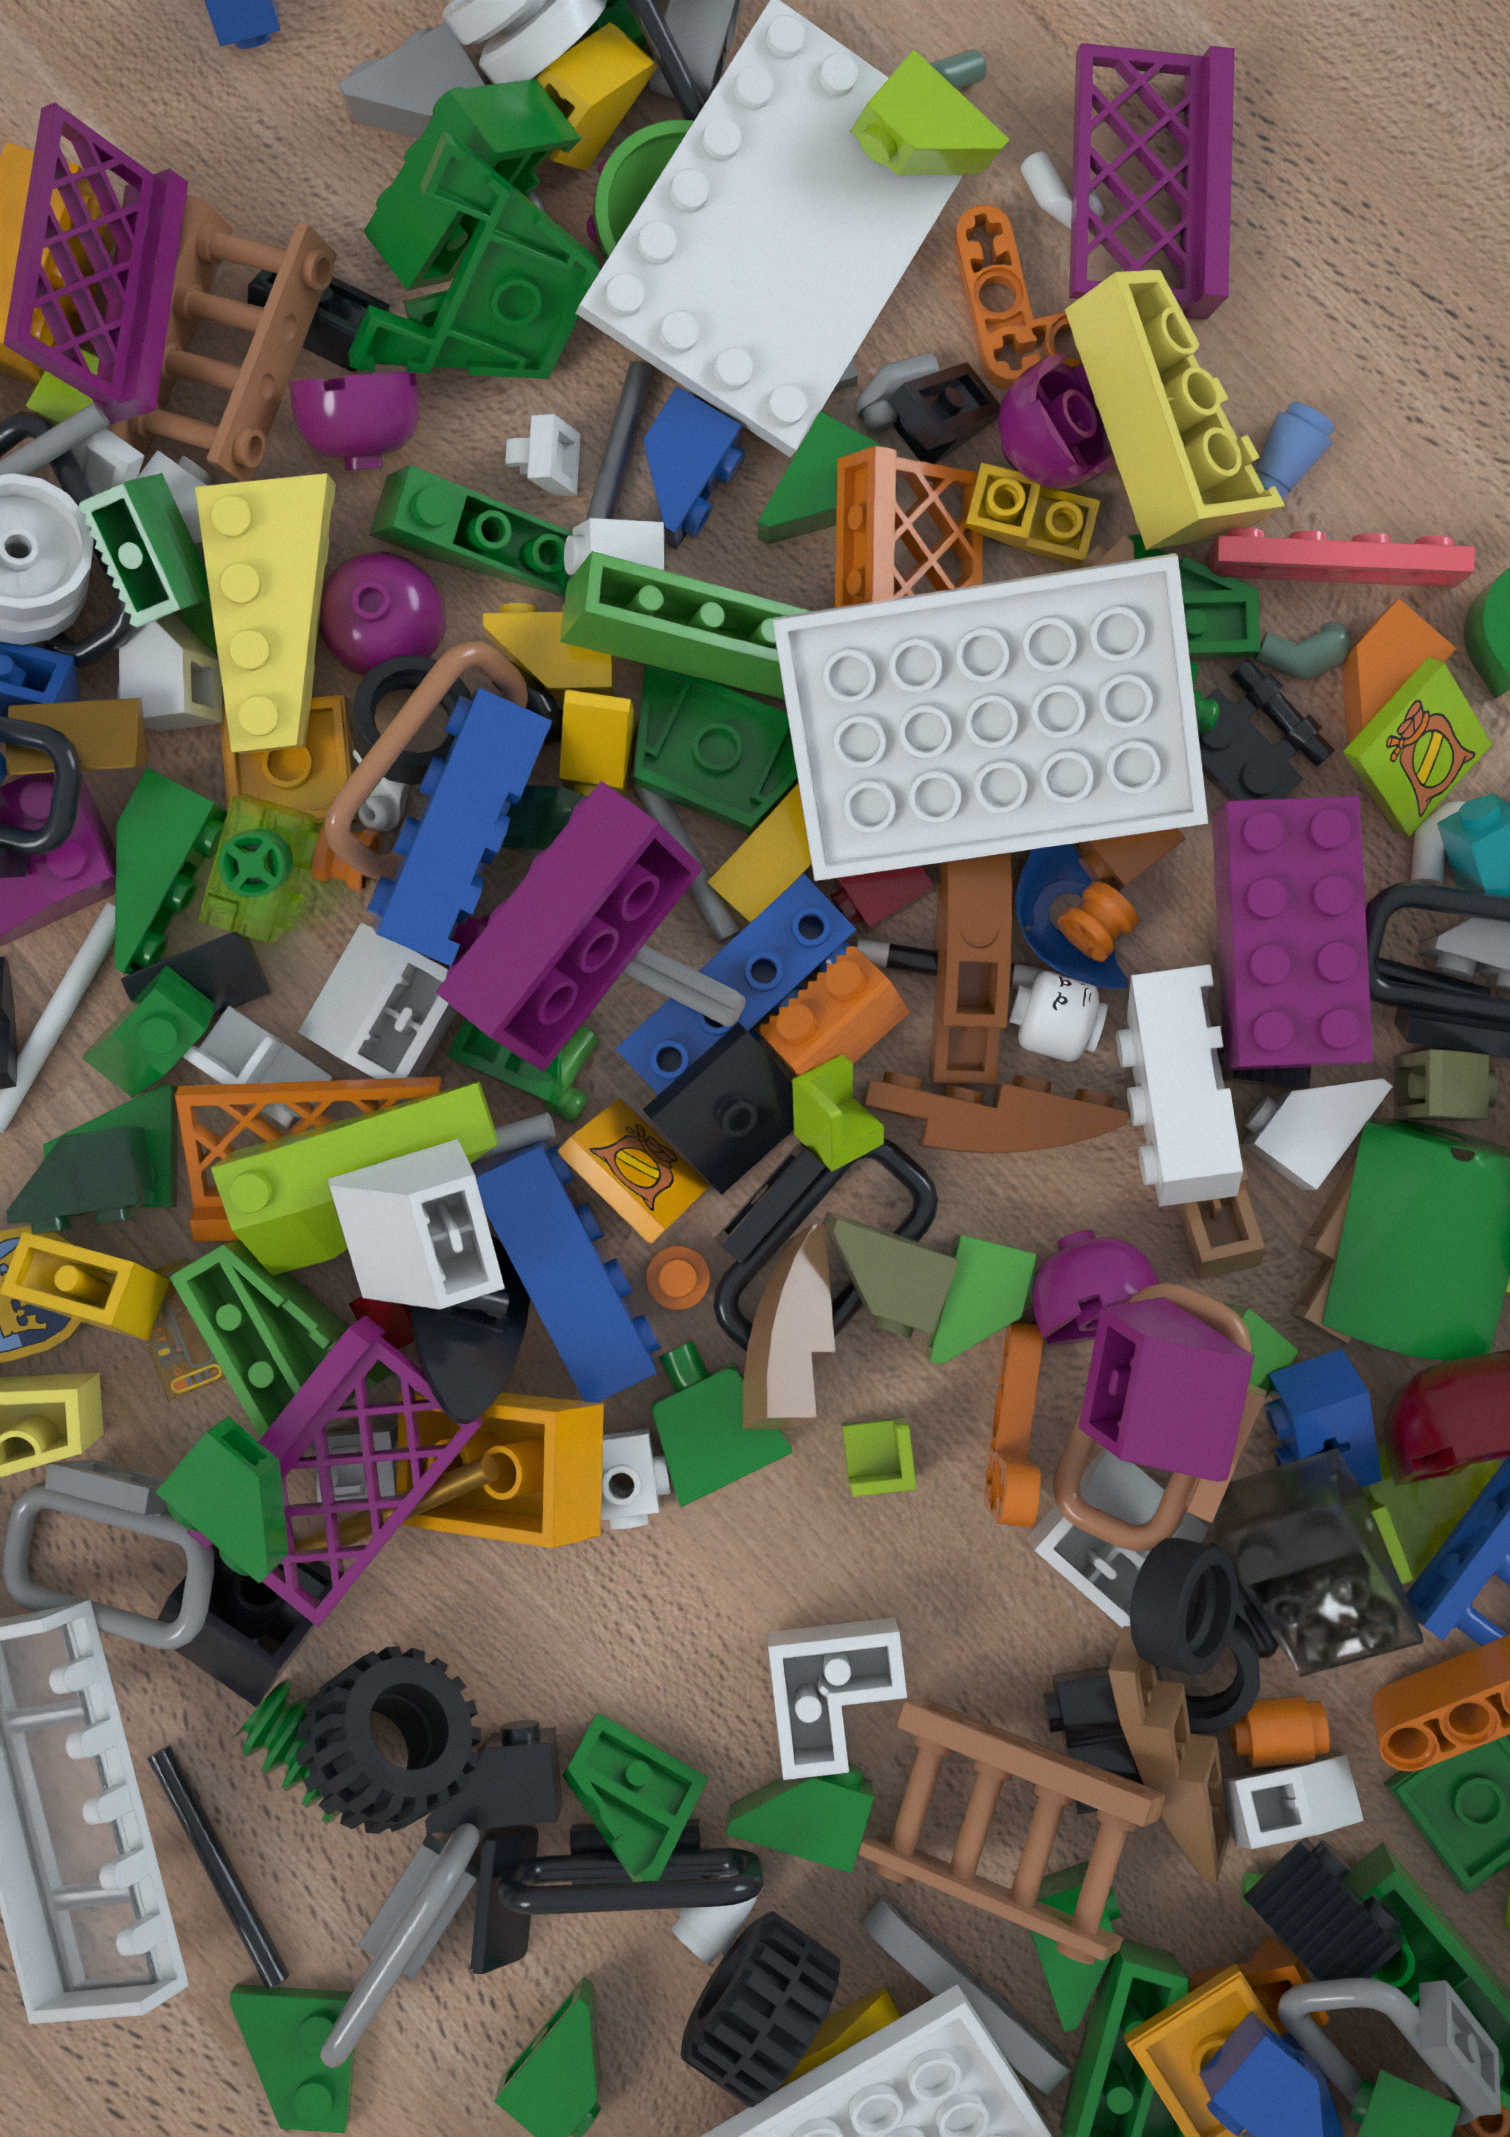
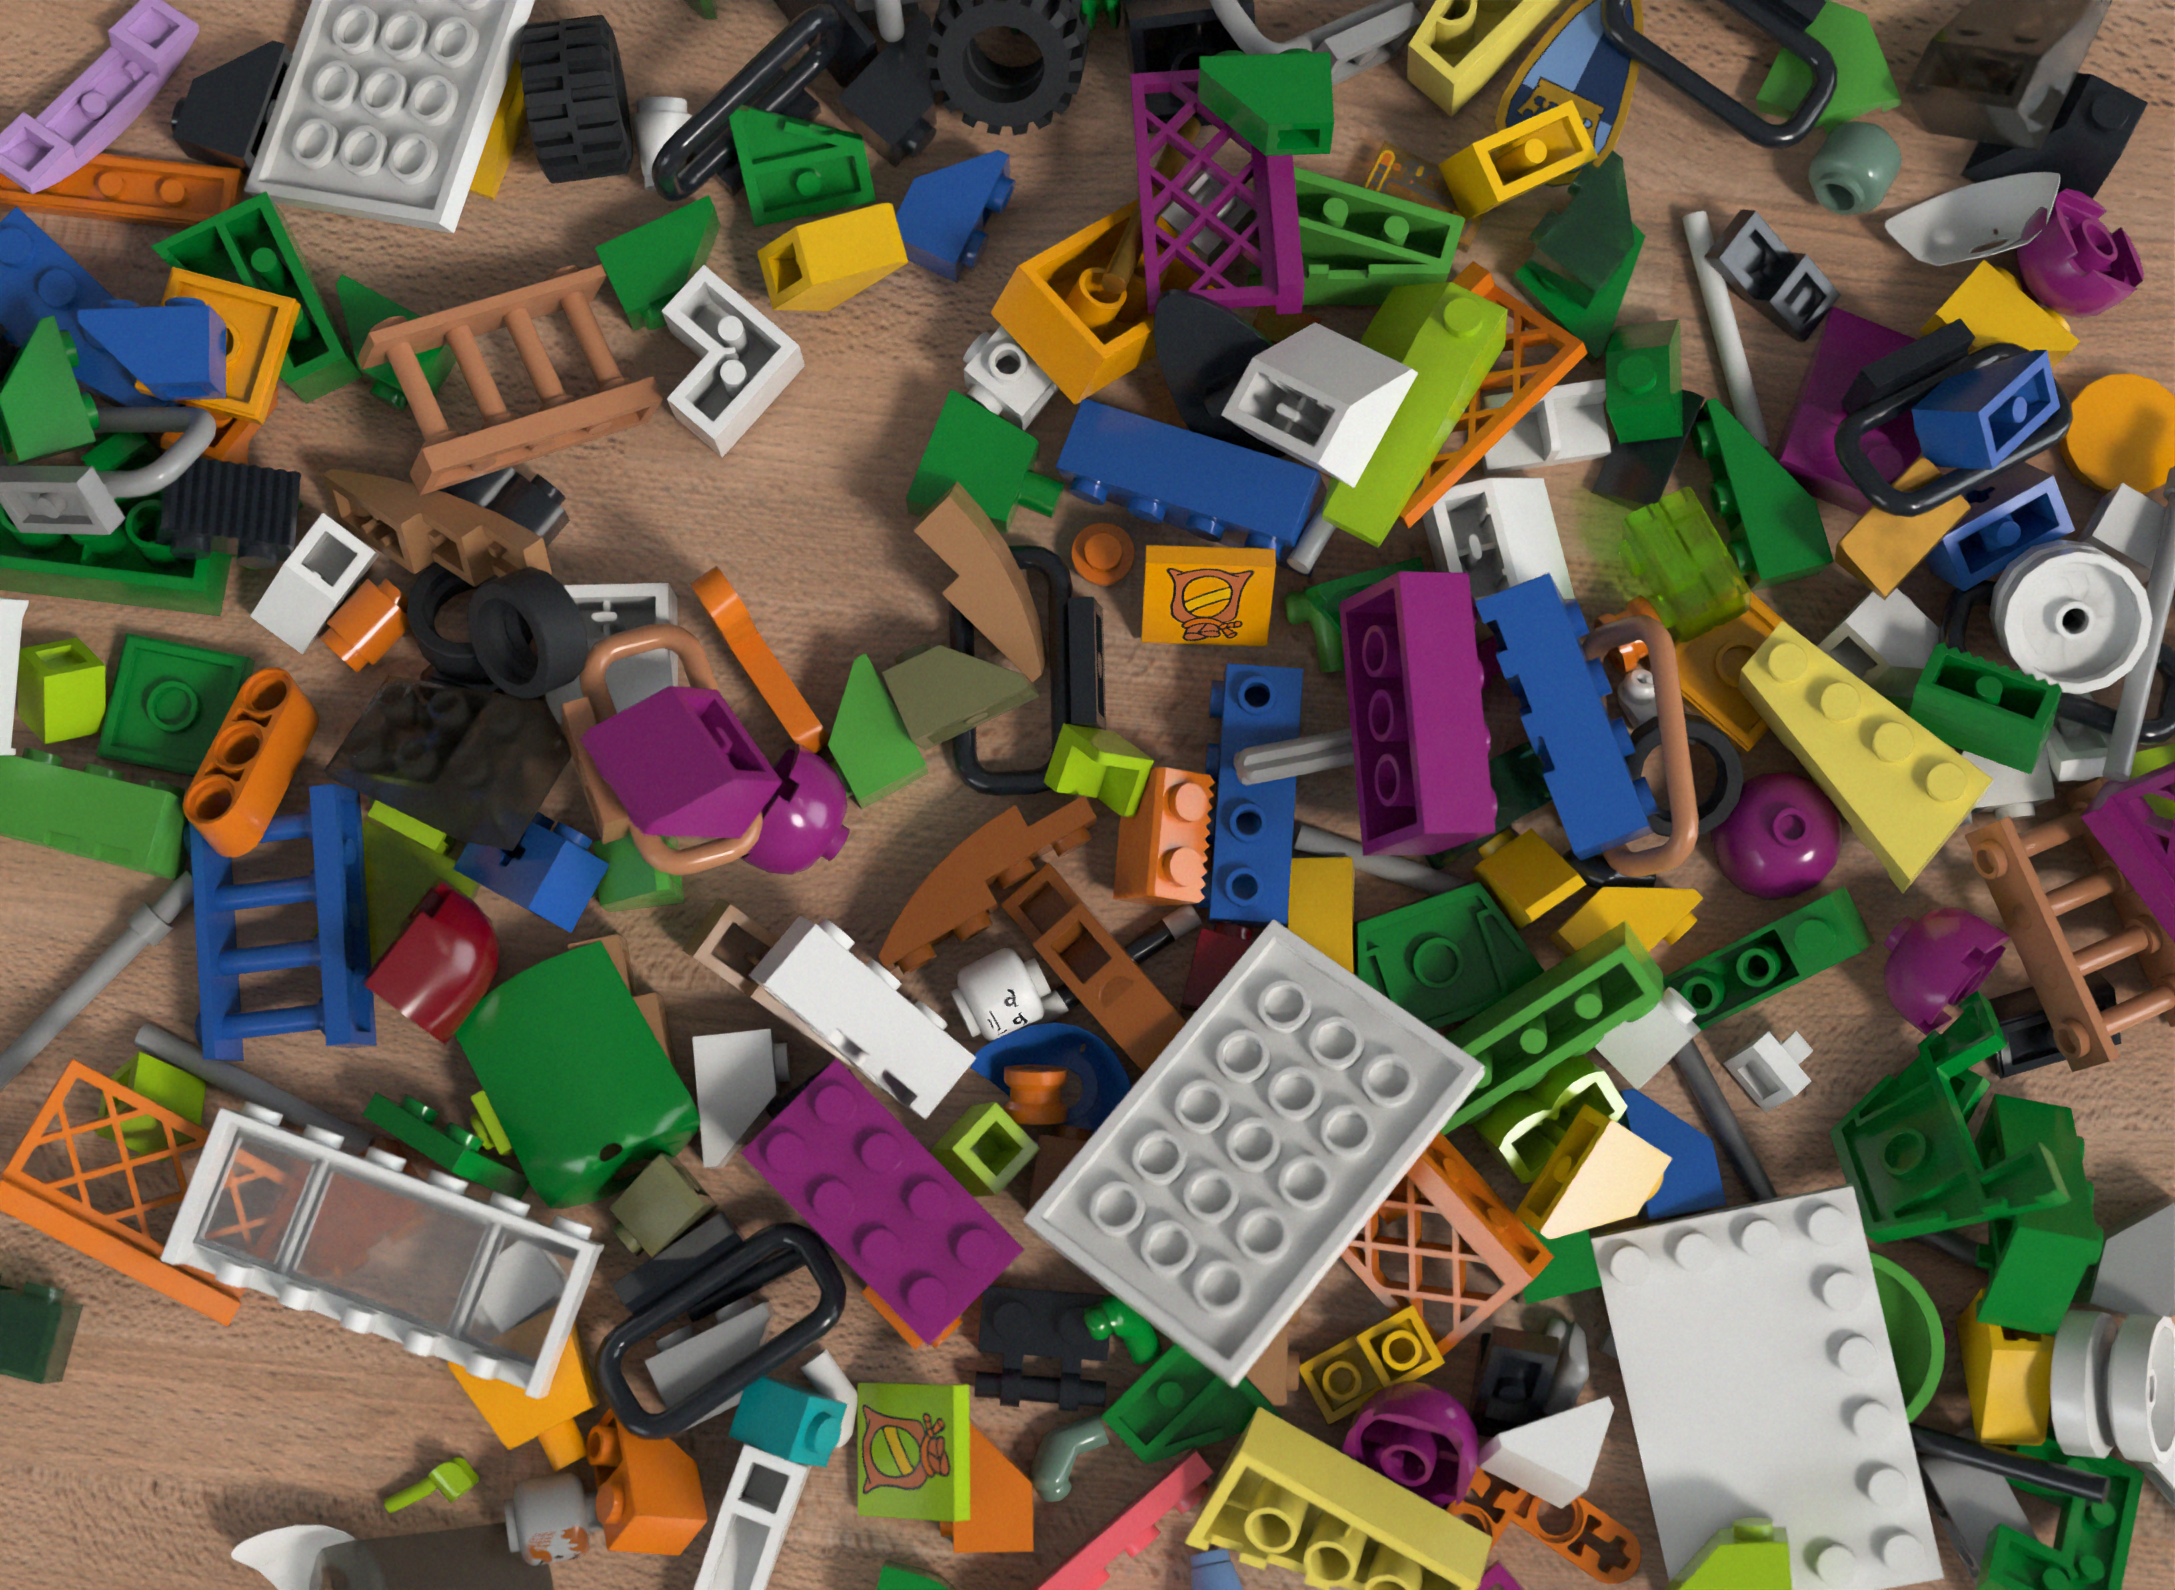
camera: 130 degrees right, 5 degrees down
(247, 871) = (1687, 542): green wheel -> none
(552, 1651) = (948, 211): none -> blue slope
(677, 1694) = (832, 259): none -> yellow slope
(726, 1108) = (1182, 700): black plate -> none
(750, 557) = (1532, 1122): none -> lime brick
(761, 482) = (1592, 1177): none -> slope
(879, 1456) = (838, 557): lime panel -> none
(941, 1969) = (396, 245): light grey beam -> none
(961, 328) = (1552, 1454): none -> white slope
(1174, 913) = (984, 1149): none -> lime brick
(1361, 2040) = (122, 452): none -> green plate

